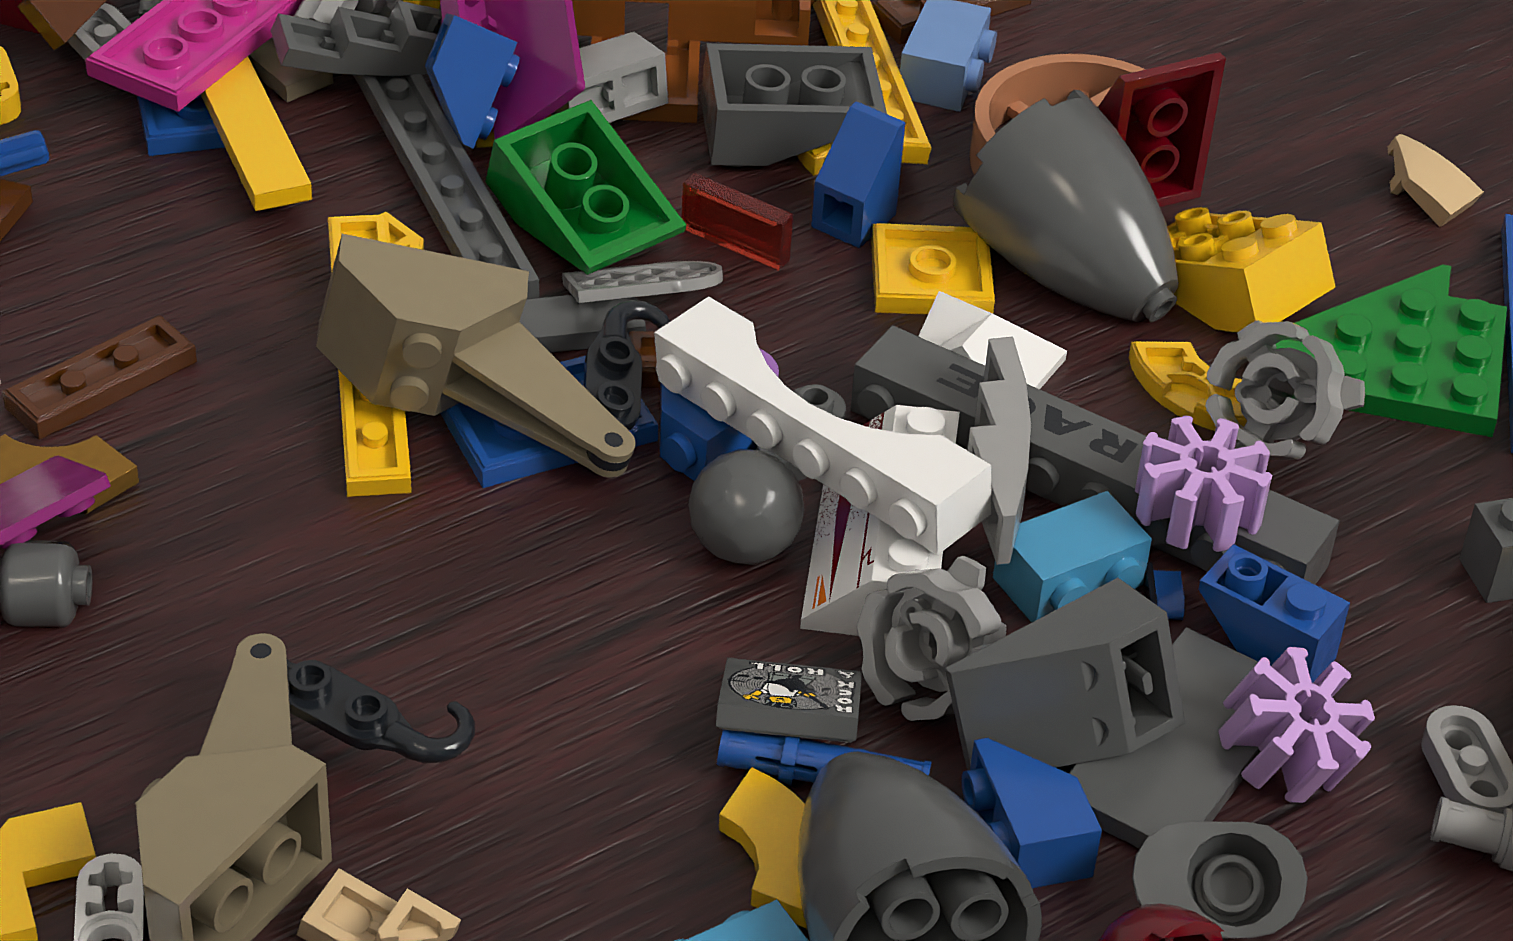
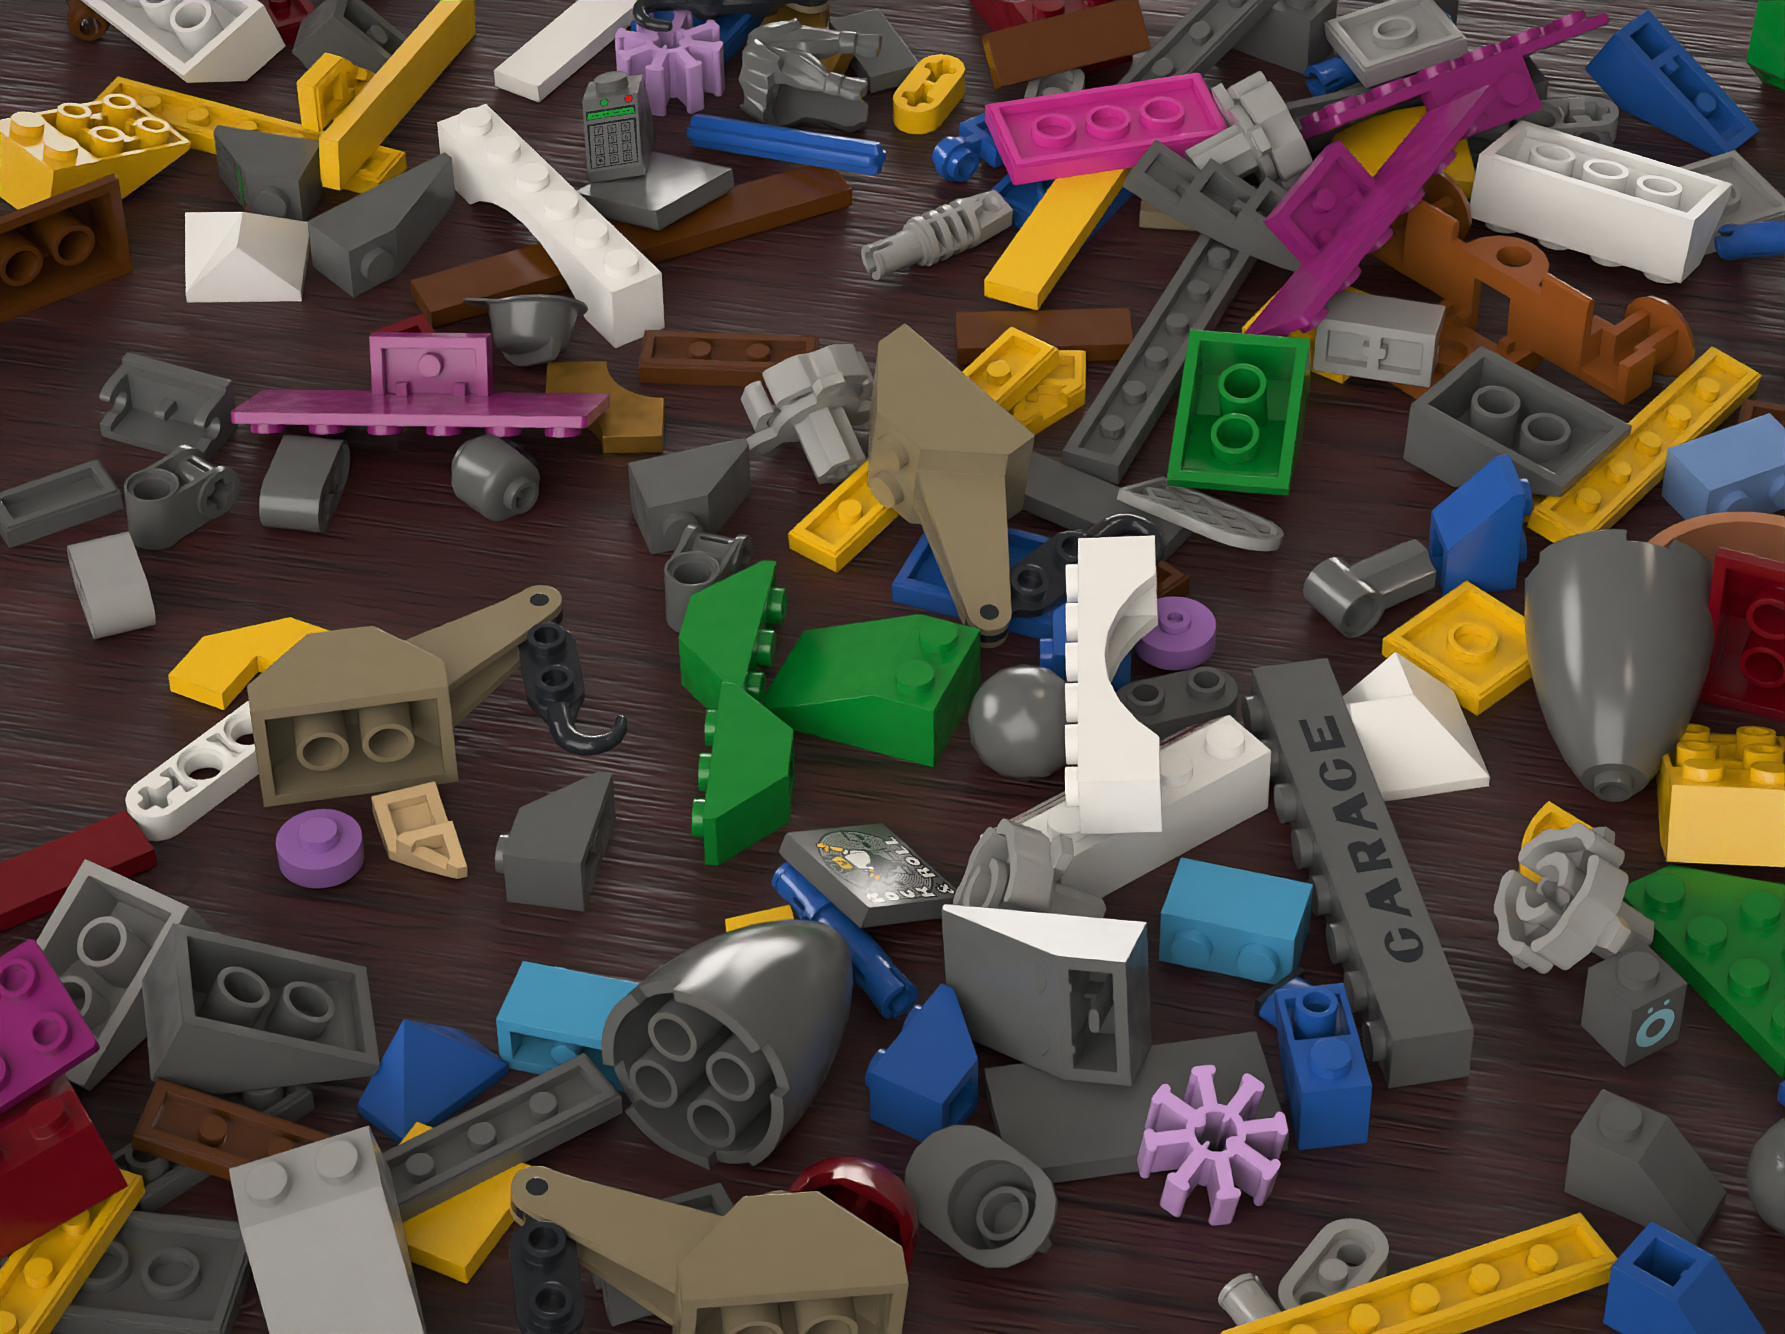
camera: 50 degrees right, 0 degrees up
(87, 103) = (959, 156): none -> blue plate
(151, 184) = (939, 234): none -> light grey hinge
(226, 502) = (688, 488): none -> dark grey slope
(264, 367) = (815, 403): none -> light grey piece
(303, 233) = (1098, 331): none -> reddish brown tile
(330, 558) = (699, 563): none -> dark grey piece
(433, 600) = (732, 634): none -> green slope
(466, 74) = (1244, 265): blue slope -> none
(520, 849) = (558, 845): none -> dark grey slope
(576, 683) = (744, 777): none -> green slope
(580, 553) = (881, 684): none -> green slope
(737, 221) = (1344, 507): clear red tile -> none
(822, 269) = (1359, 593): none -> dark grey piece
(1003, 441) = (1239, 800): light grey slope -> none
(1202, 483) = (1371, 918): lavender gear -> none
(1380, 442) = (1633, 1004): none -> dark grey brick

